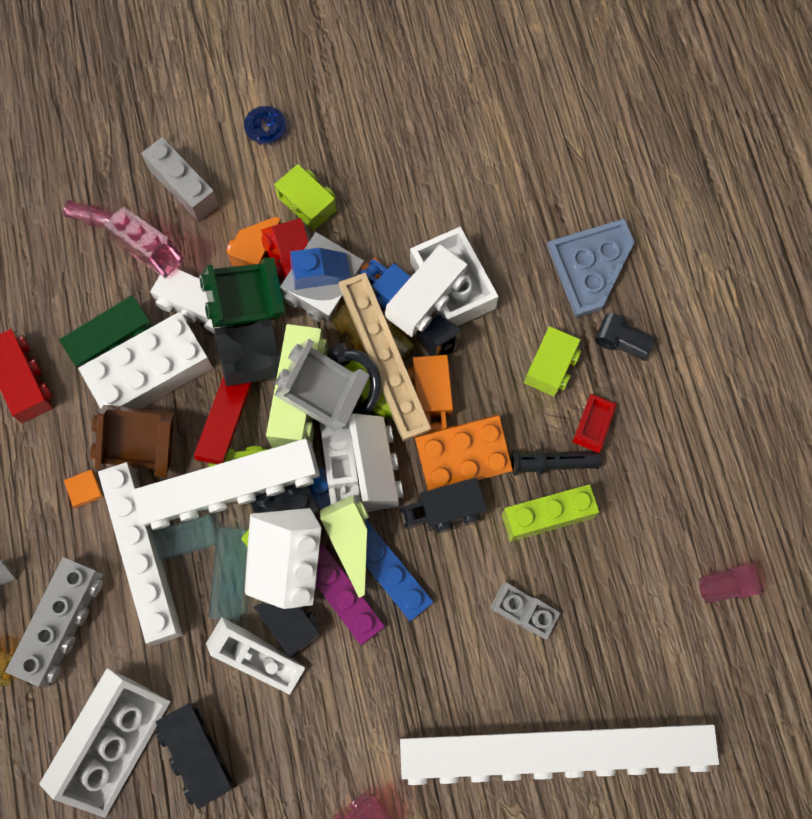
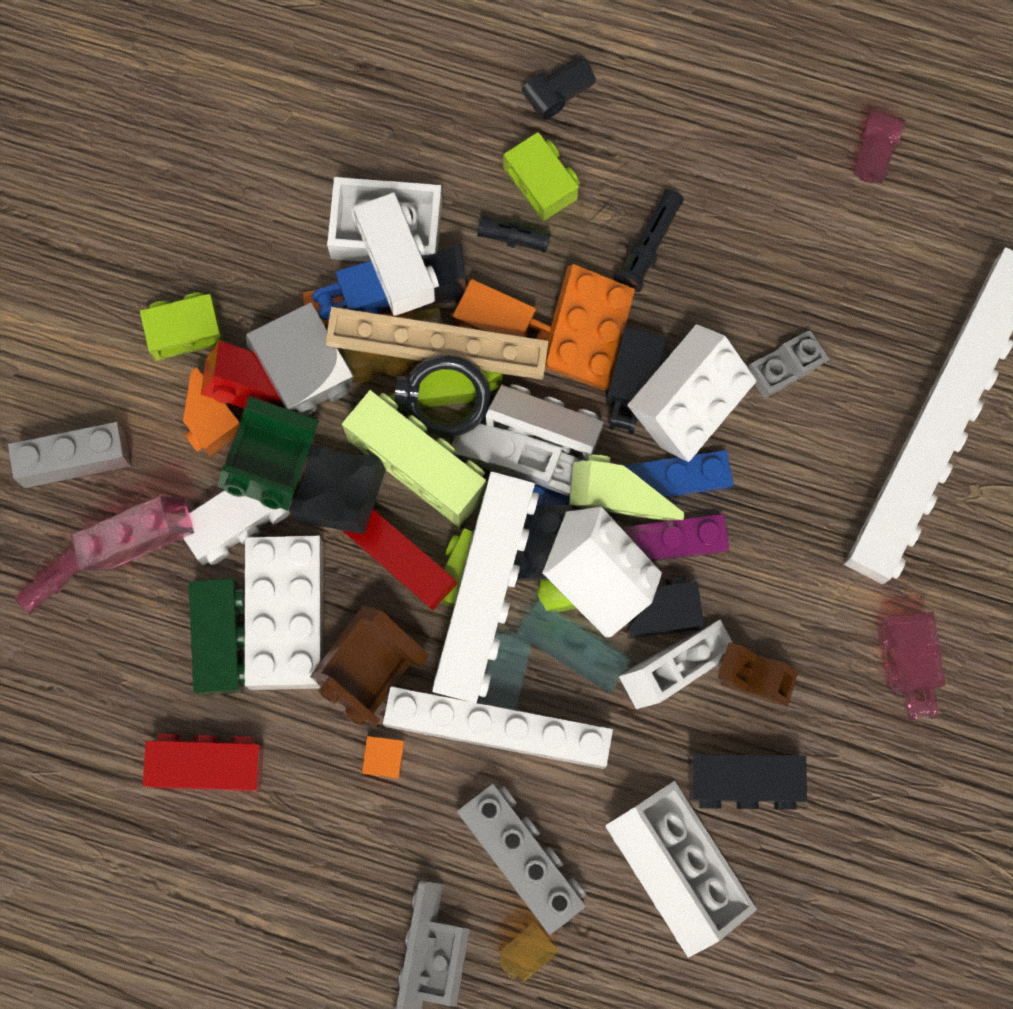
camera: 60 degrees left, 5 degrees up
(274, 120) = (49, 310): clear blue gear -> none
(275, 717) = (756, 675): none -> reddish brown brick
(318, 267) = (296, 354): blue slope -> none
(320, 386) = (440, 424): light grey panel -> none
(456, 551) = (692, 392): none -> white brick
(500, 367) = (514, 233): none -> black pin
(549, 513) = (704, 275): lime brick -> none
(590, 264) = (454, 70): sand blue plate -> none
(594, 423) = (633, 174): red tile -> none

